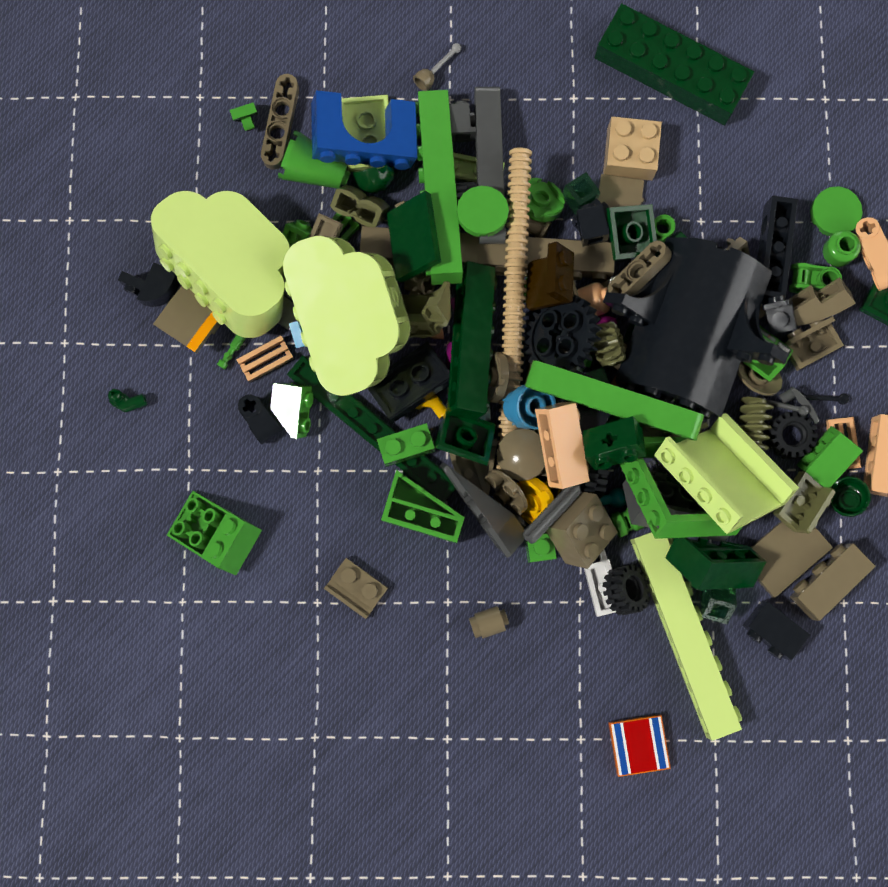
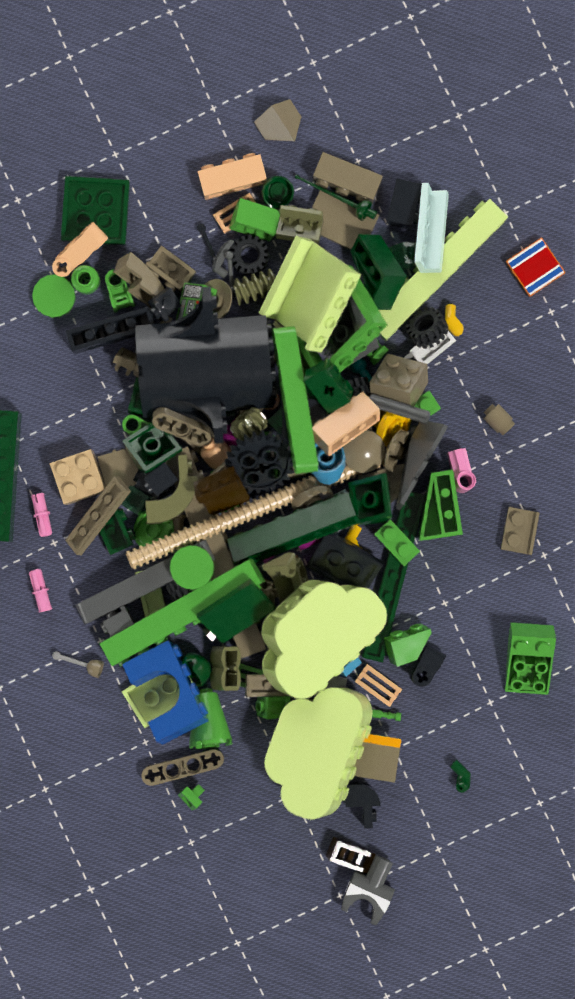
camera: 110 degrees left, 5 degrees up
(58, 253) = (371, 888): none -> dark grey connector
(116, 247) = (333, 857): none -> dark brown slope
(455, 554) = (461, 467): none -> bright pink piece
(530, 60) = (40, 590): none -> bright pink axle
(559, 161) = (116, 534): none -> dark green bracket
(559, 229) = (171, 507): none -> olive arch
(583, 147) = (97, 515): none -> dark tan tile
(609, 96) = (41, 514): none -> bright pink axle
(619, 622) = (453, 323): none -> yellow arm
(735, 645) = (431, 229): none -> light aqua fence
(790, 581) = (363, 209): none -> dark green sword

